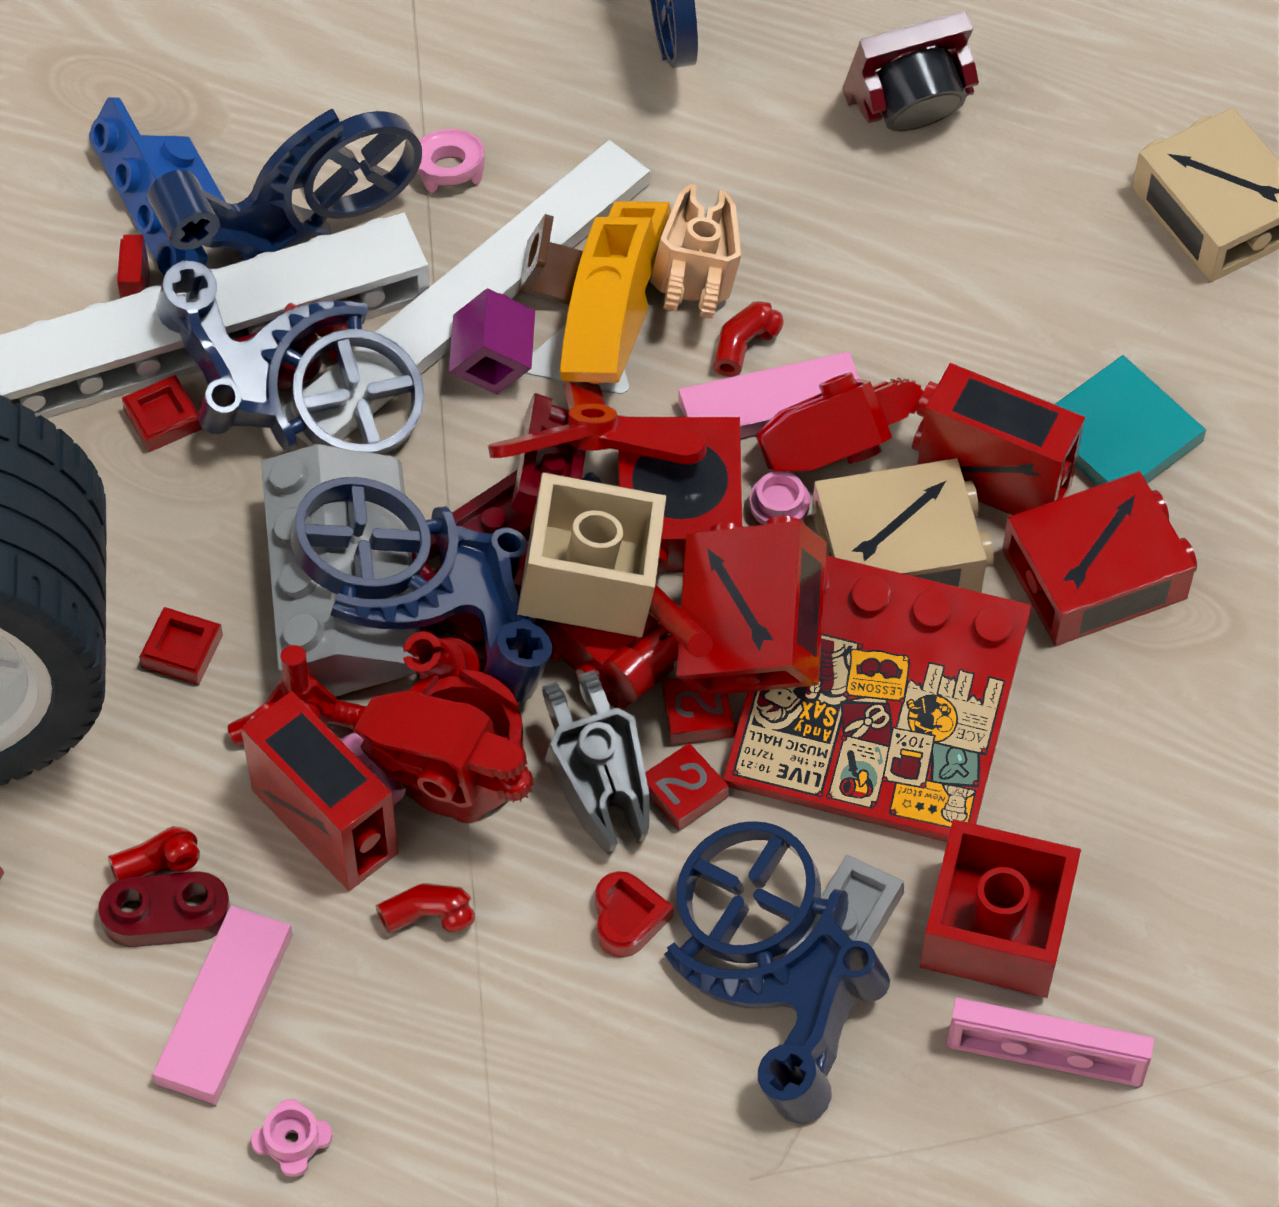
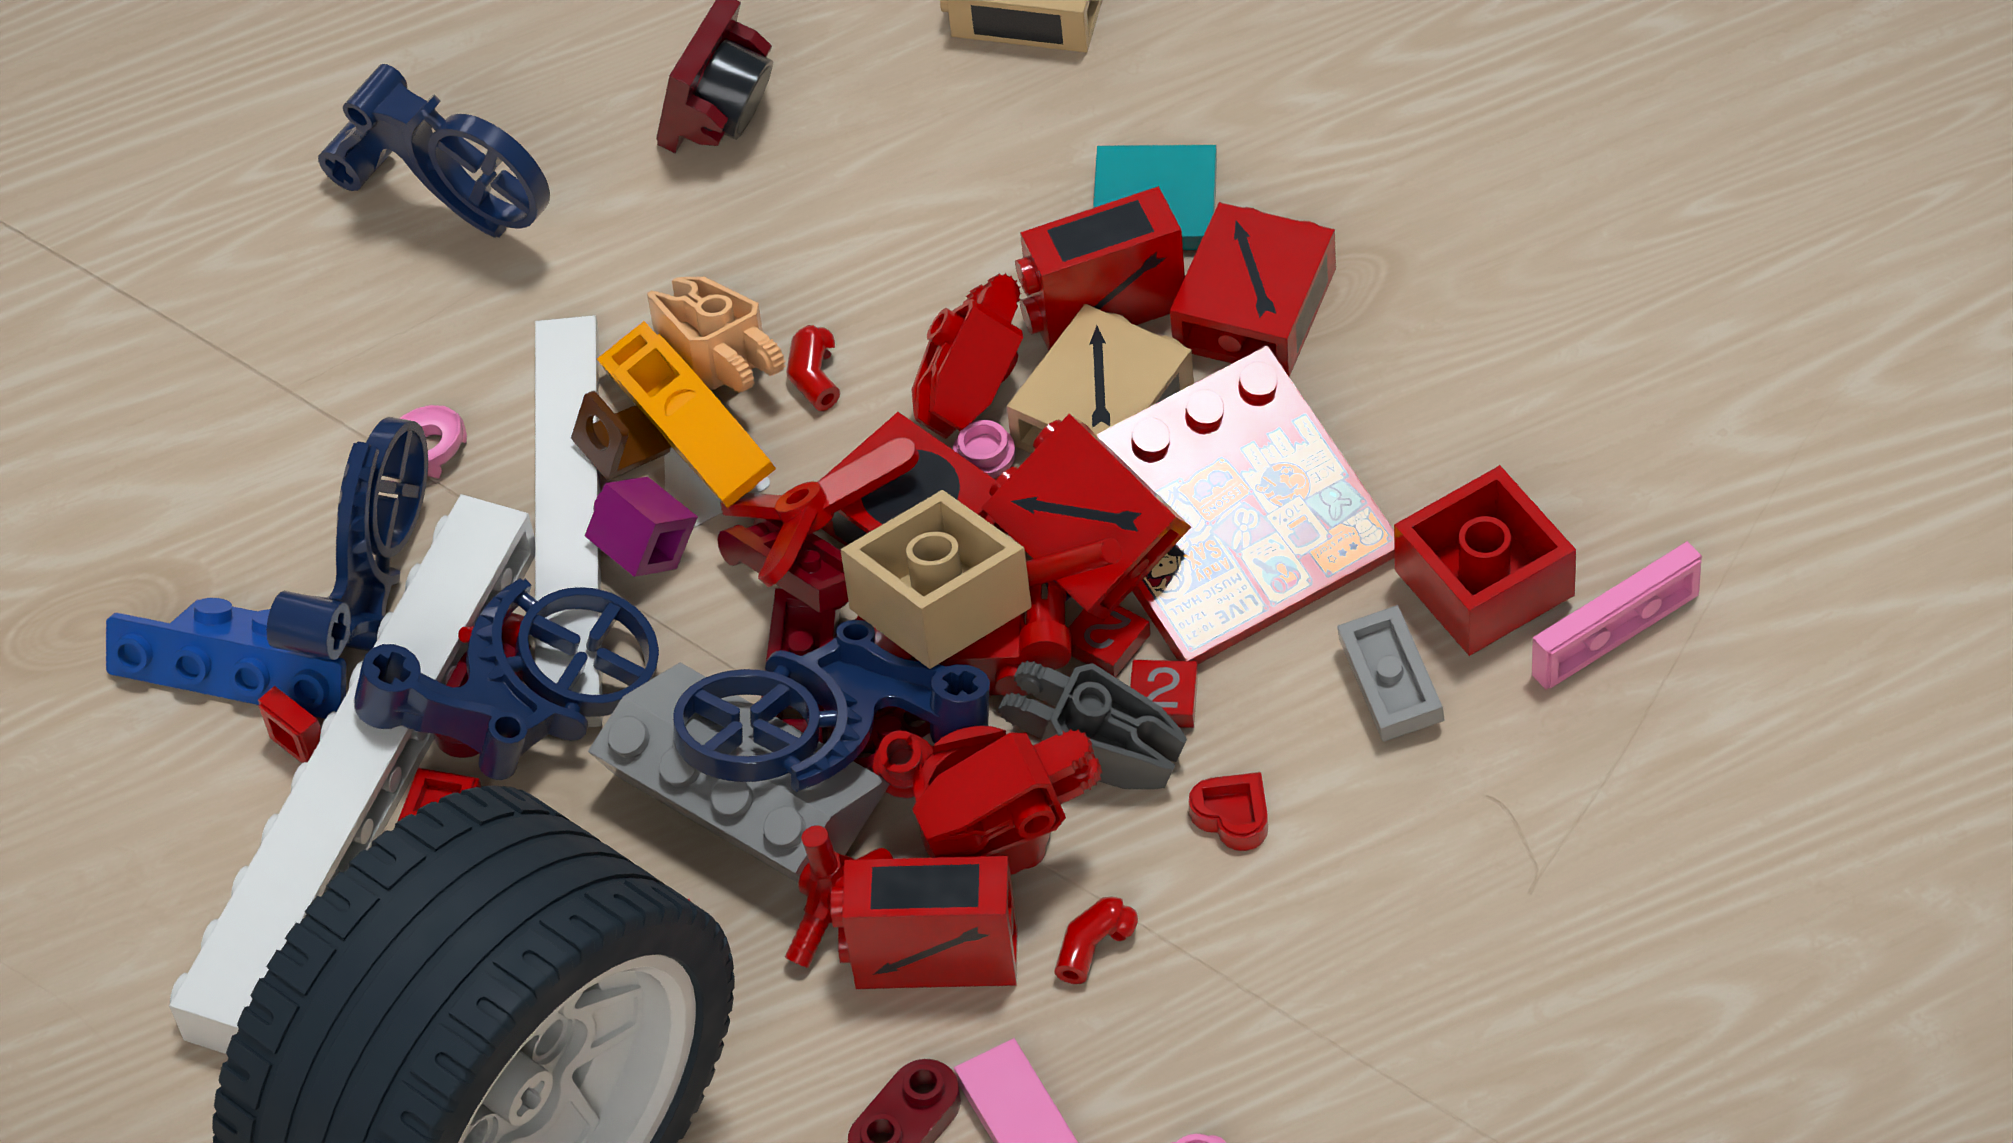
camera: 40 degrees left, 5 degrees down
(171, 849) = (859, 1071): red arm -> none
(763, 393) = (879, 390): bright pink tile -> none
(815, 979) = (1422, 721): dark blue piece -> none

